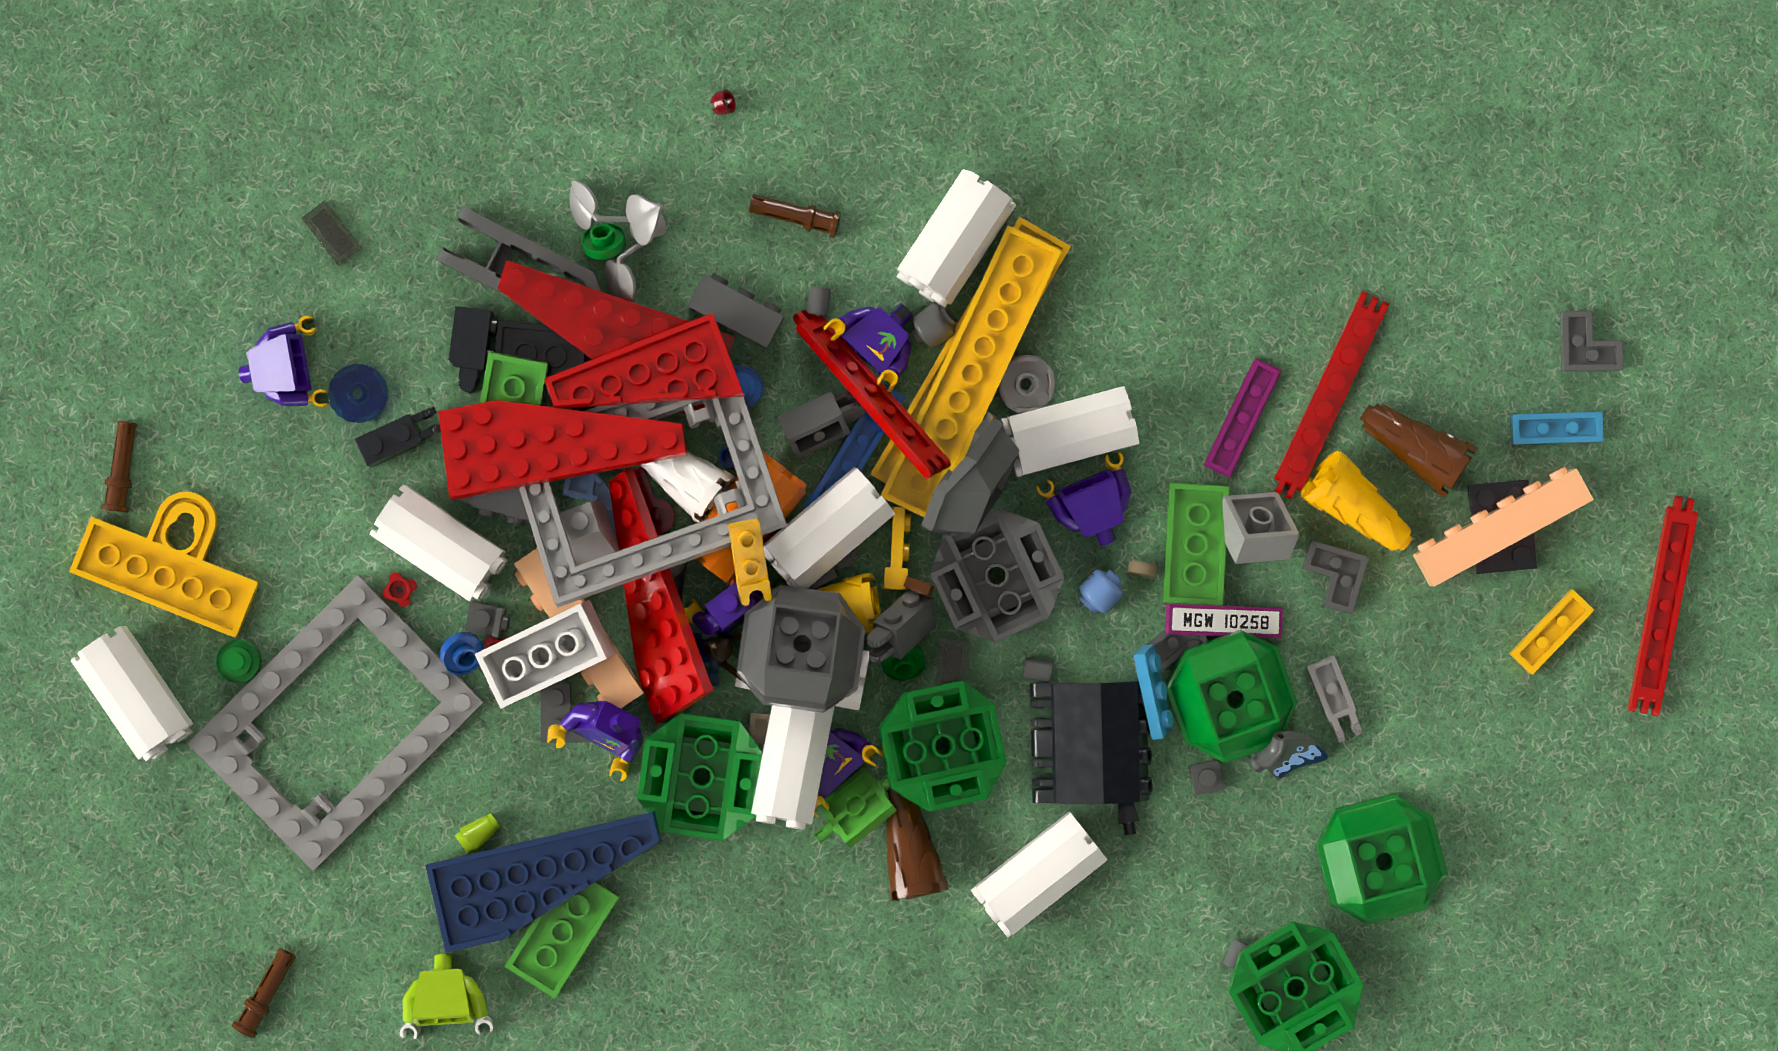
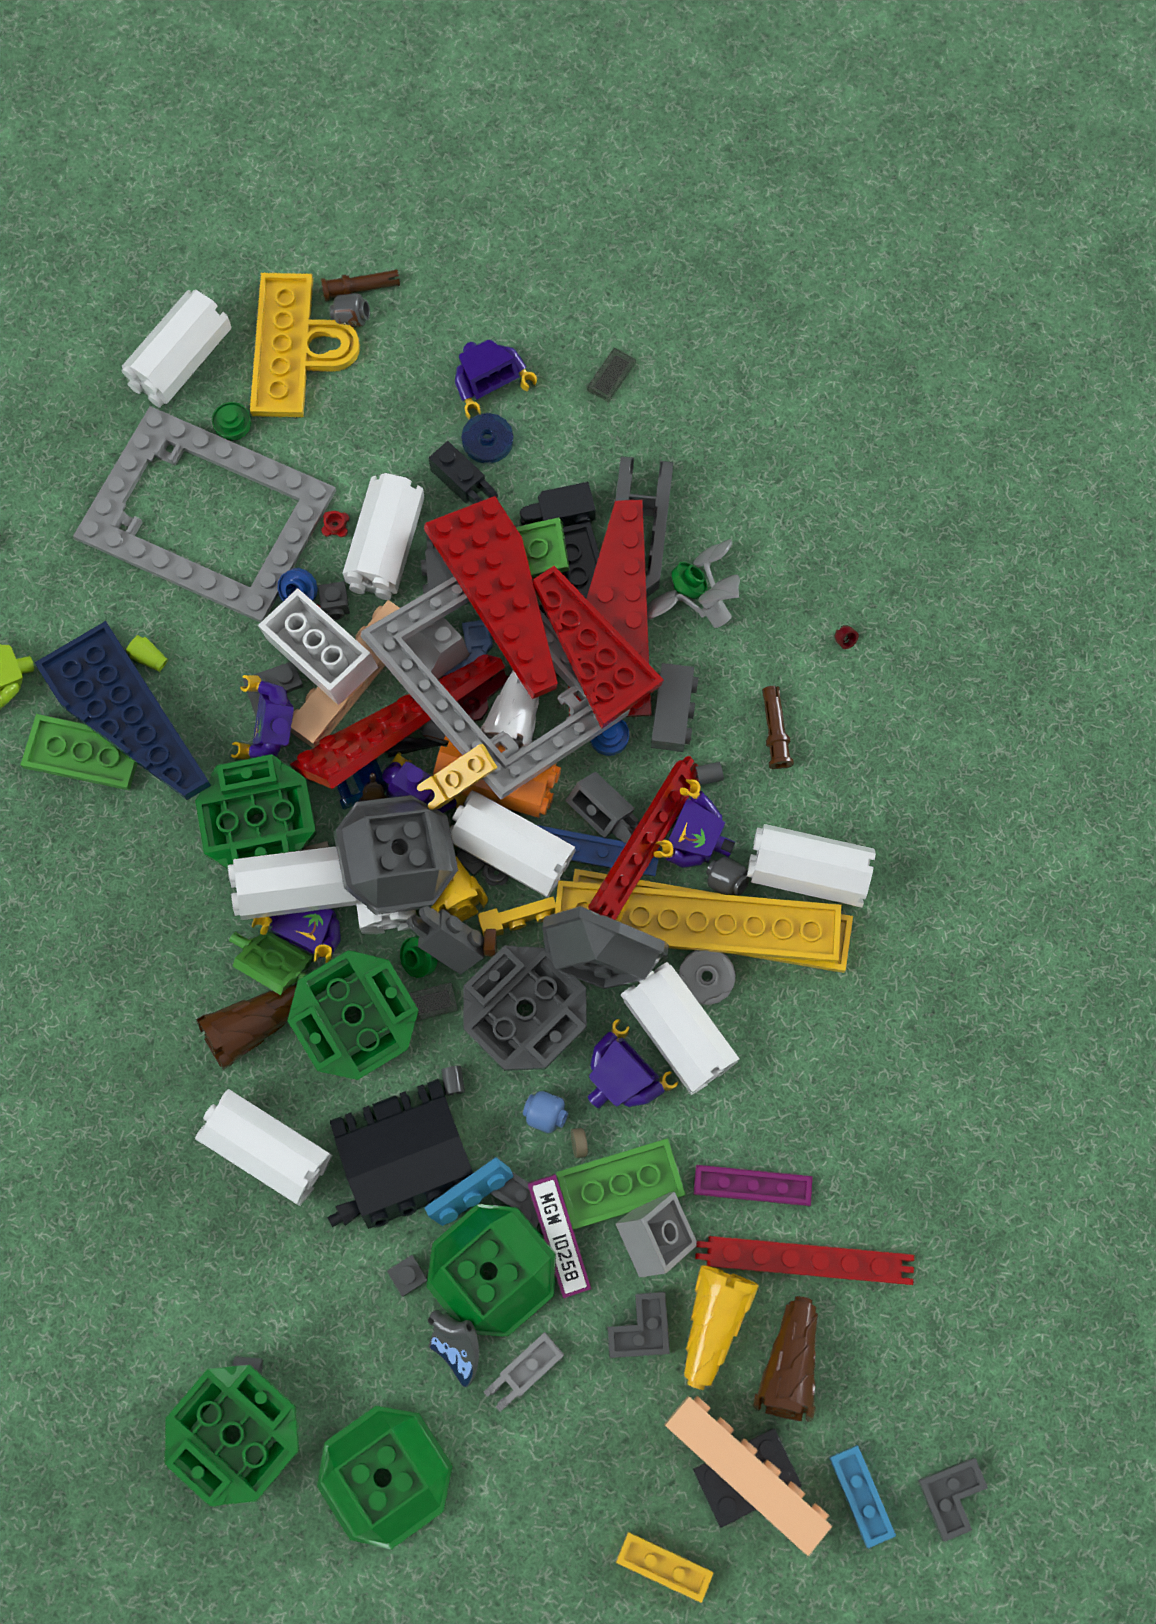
camera: 70 degrees right, 15 degrees down
(152, 489) = (350, 310): none -> dark grey head

